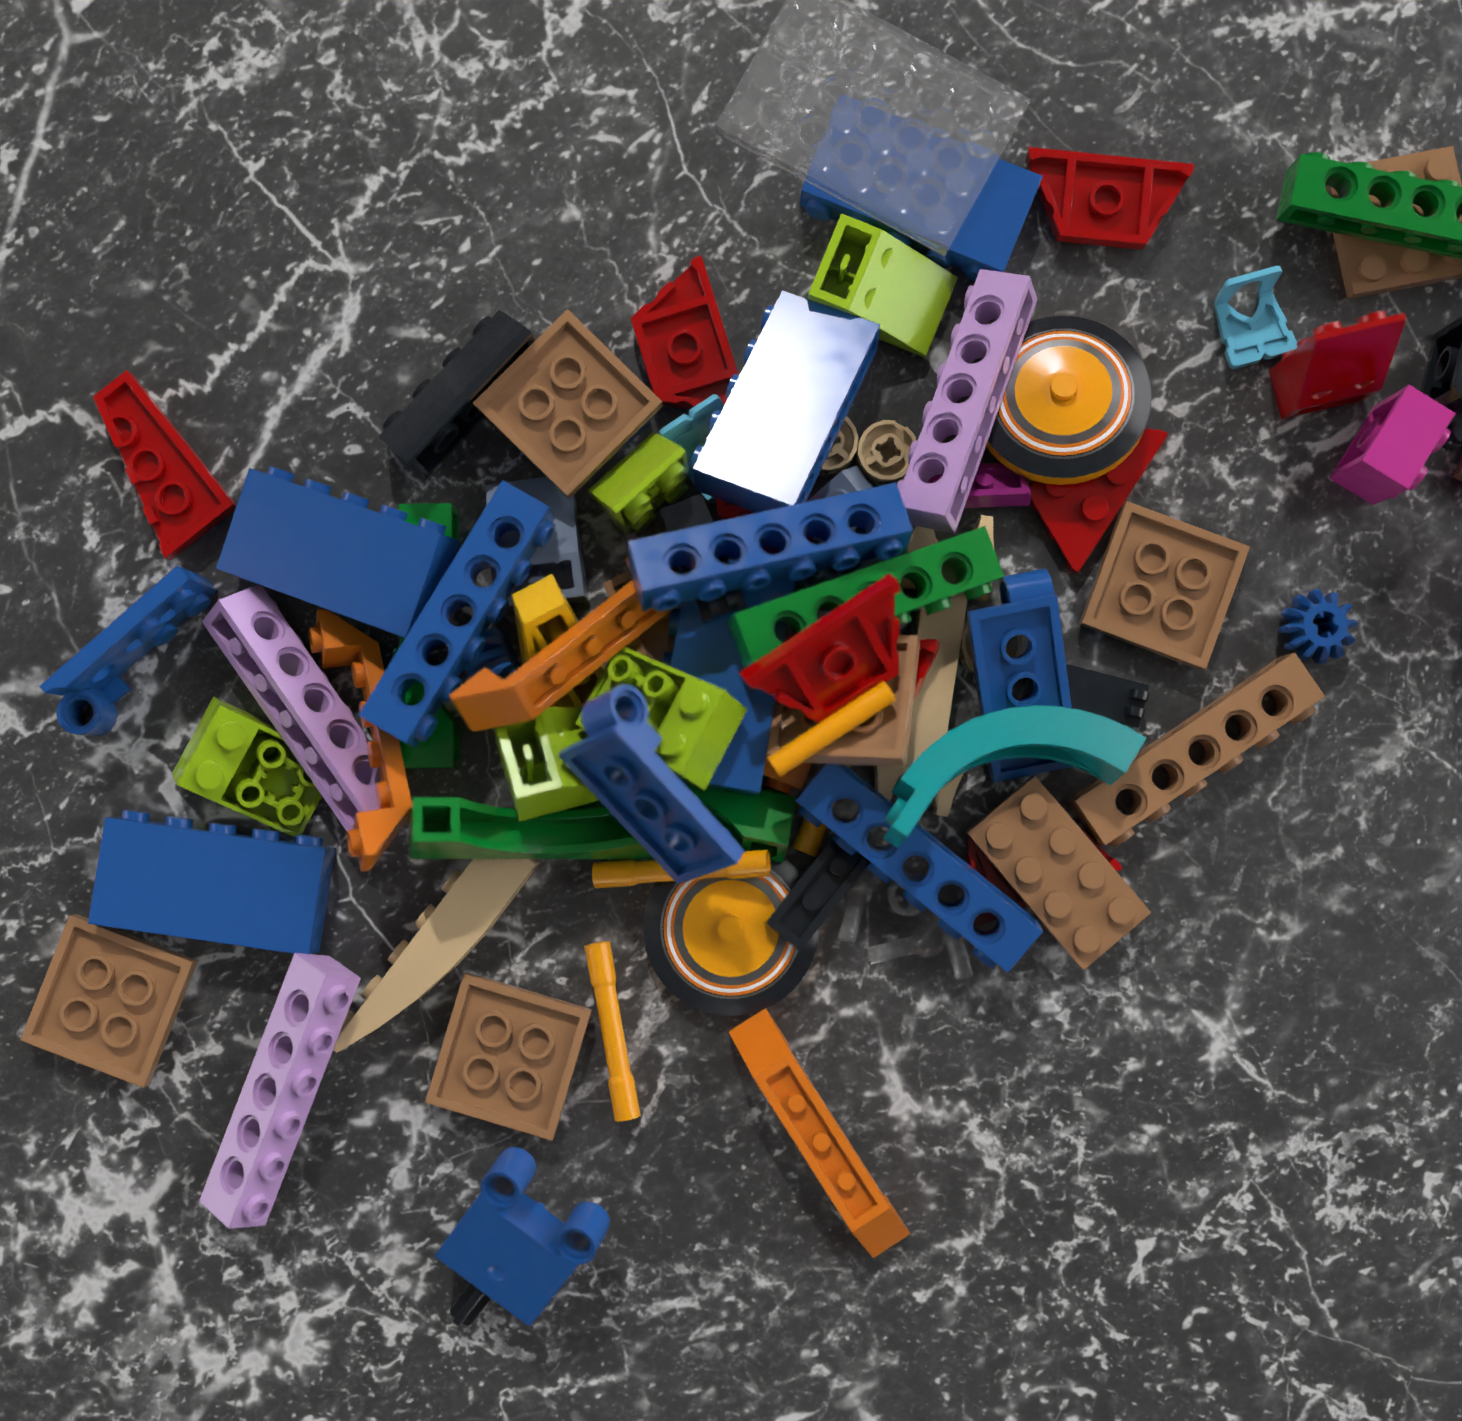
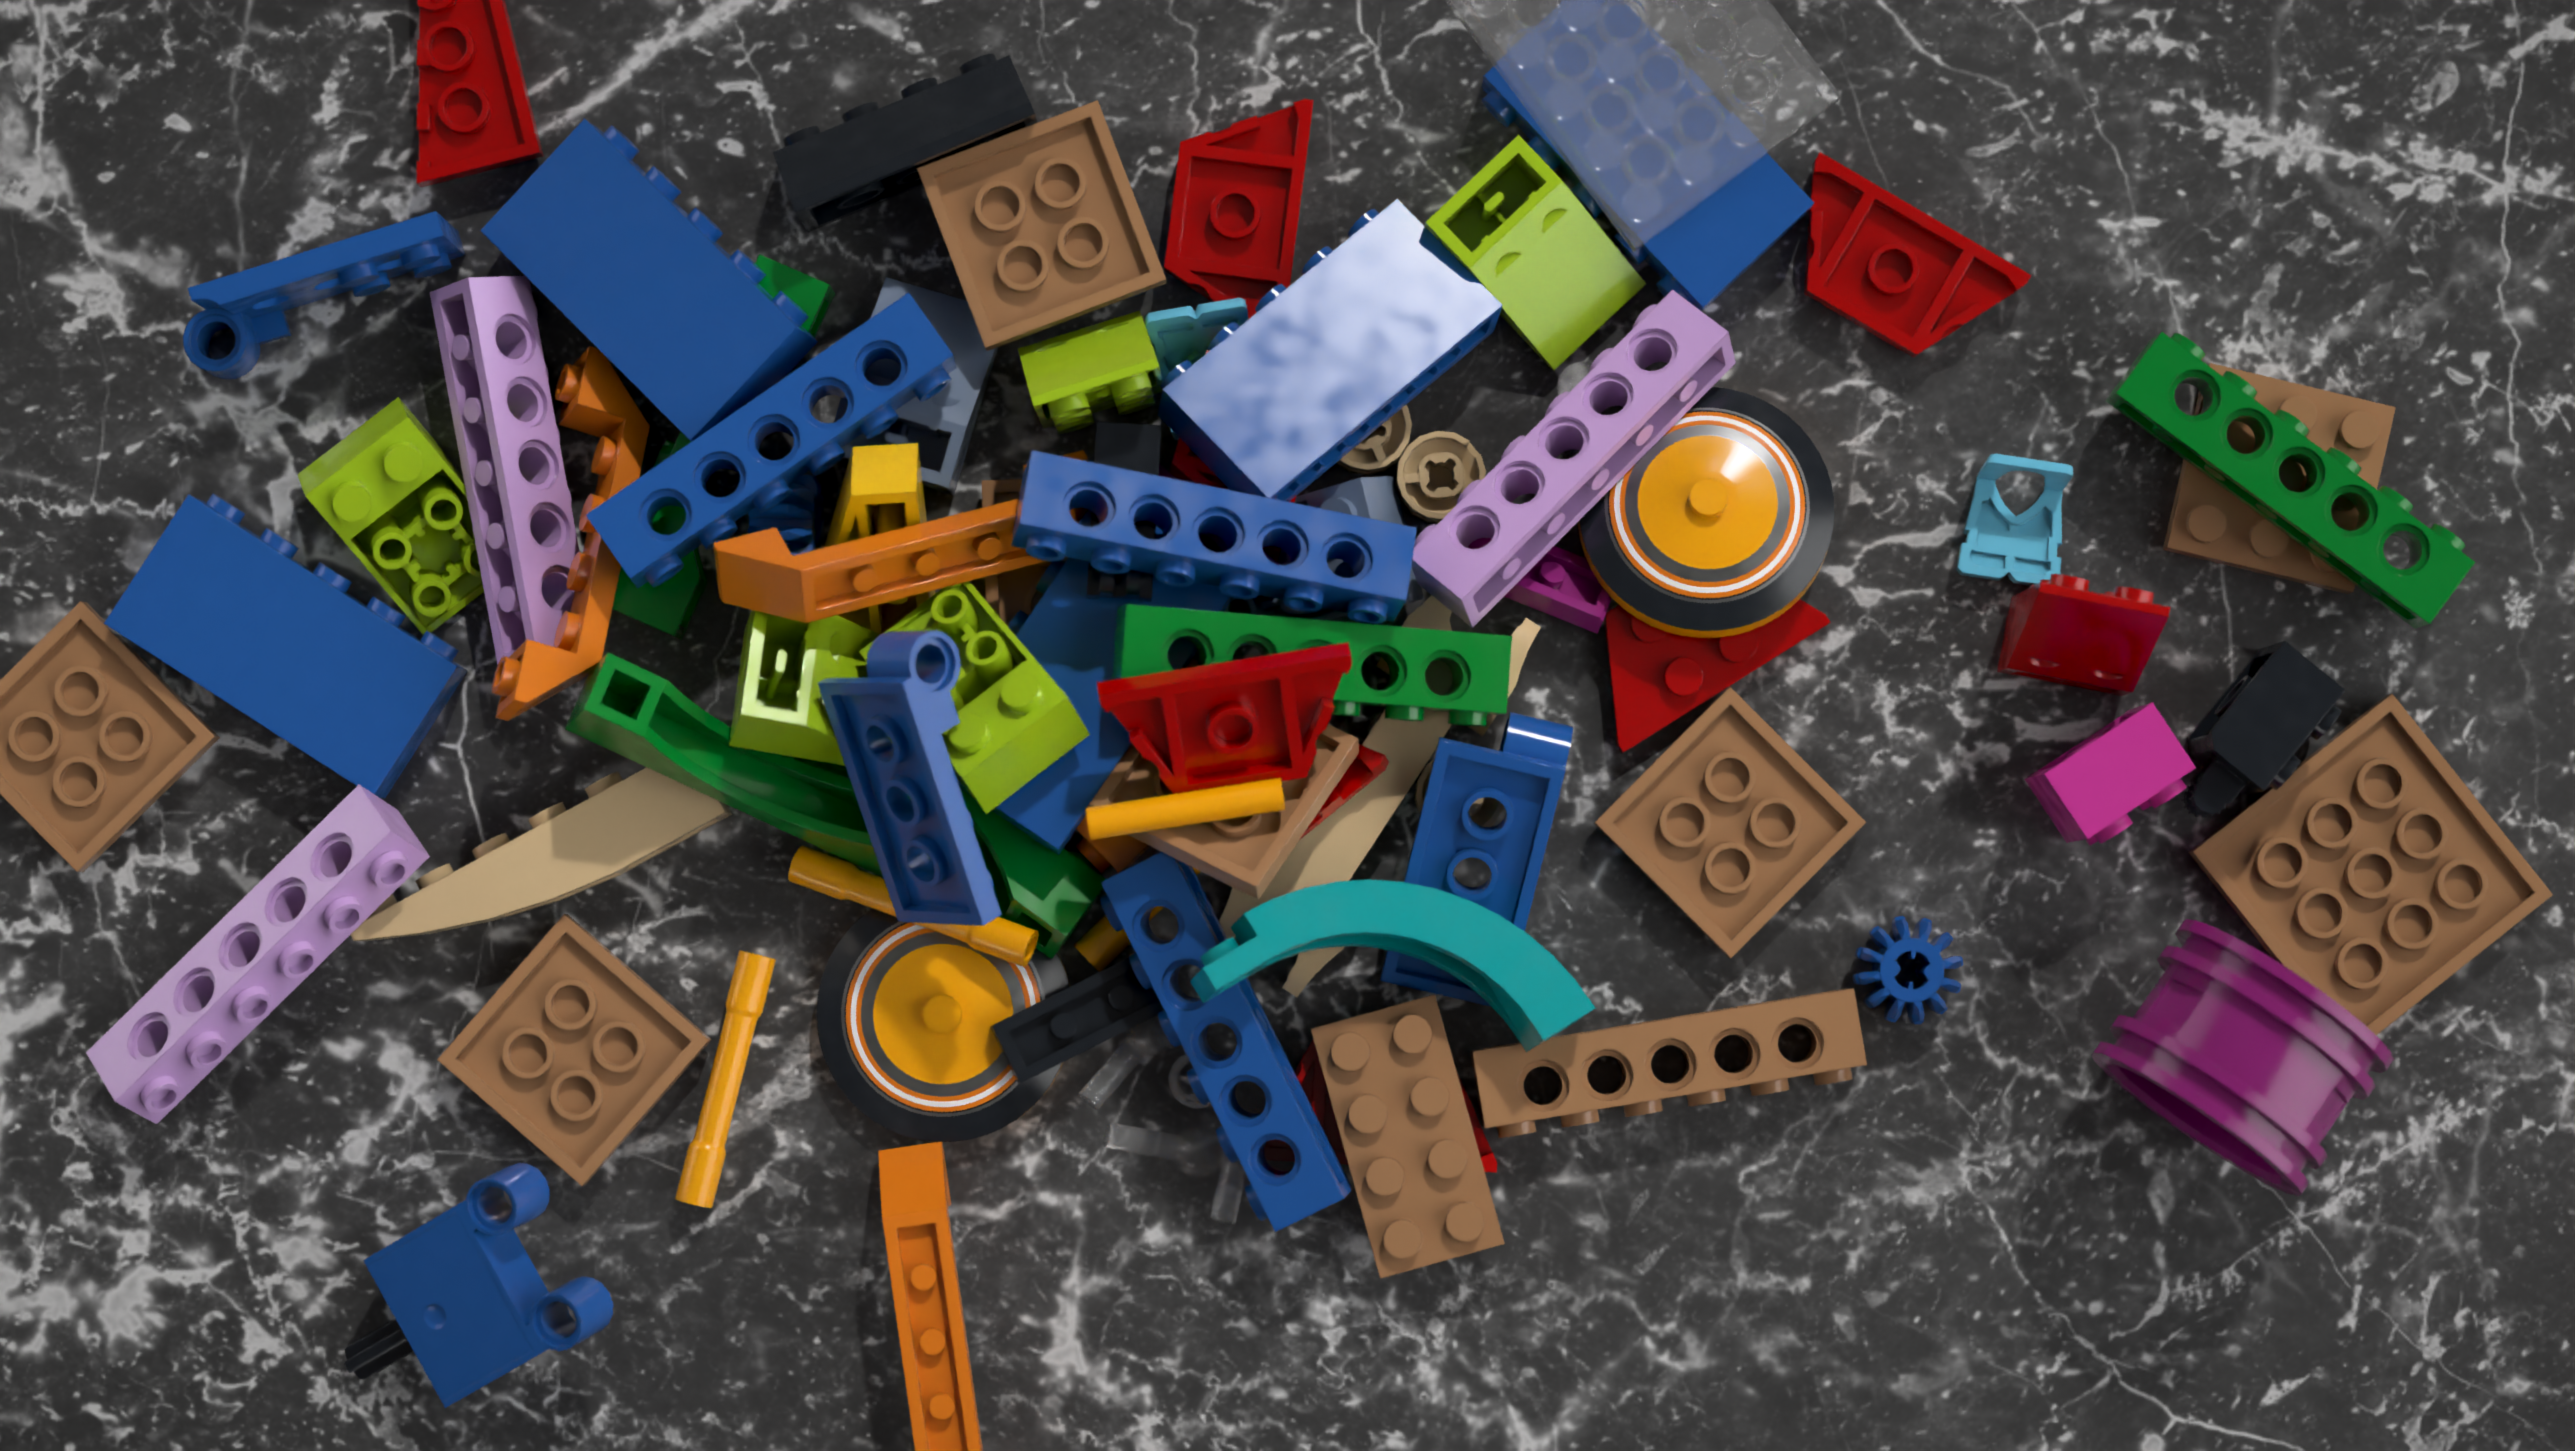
camera: 20 degrees right, 0 degrees up
(1104, 695) = (1580, 931): black hinge -> none

